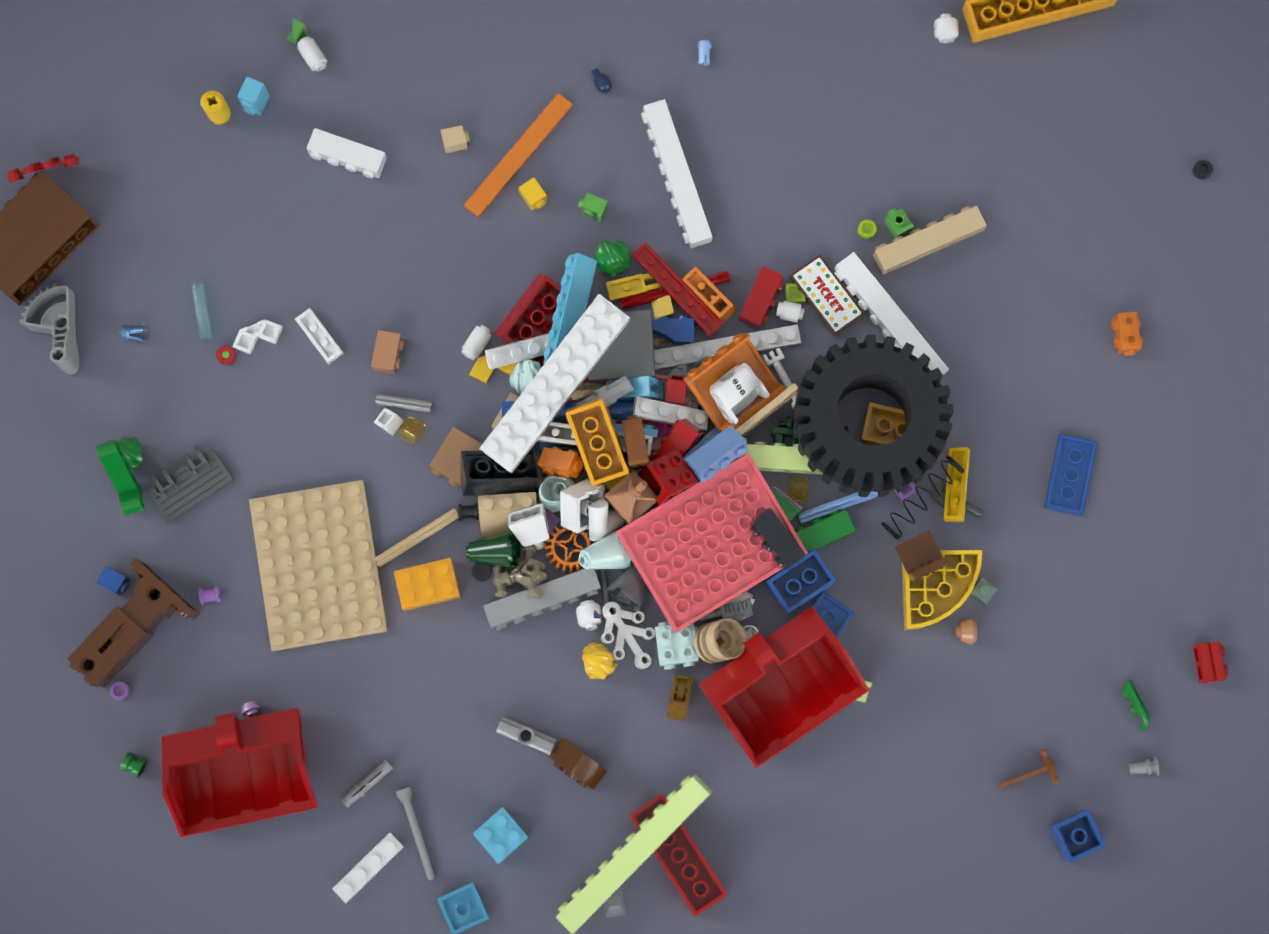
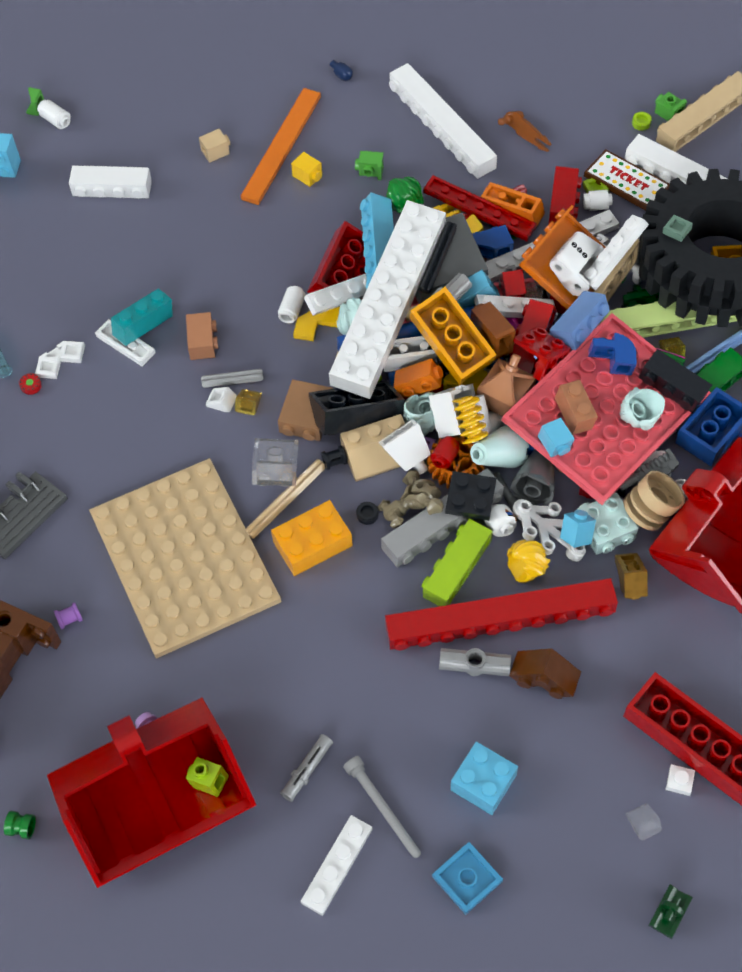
camera: 10 degrees left, 20 degrees down
(285, 772) = (207, 776): none -> lime brick
(338, 319) = (141, 317): none -> teal brick
(415, 505) = (275, 462): none -> clear brick
(495, 550) = (375, 483): dark green cone -> none
(540, 644) = (457, 563): none -> lime brick
(560, 544) = (445, 452): none -> red brick
(560, 700) = (501, 614): none -> red brick
(569, 589) = (470, 495): none -> black plate
(587, 526) = (470, 418): none -> yellow piece
(613, 352) = (438, 257): none -> black axle
(634, 853) = (649, 746): yellowish green brick -> none
(647, 647) = (578, 528): none -> medium azure brick
(653, 568) = (556, 437): none -> medium azure brick
(654, 880) = (680, 780): none -> white plate
(679, 543) = (576, 407): none -> nougat brick
(704, 52) = (429, 23): light blue pin -> none
(735, 560) = (642, 408): none -> light aqua hair
(739, 498) = (619, 351): none -> blue brick
(746, 195) = (524, 129): none -> dark orange piece
(769, 397) = (615, 251): none -> white plate
(828, 399) = (677, 228): none -> sand green plate

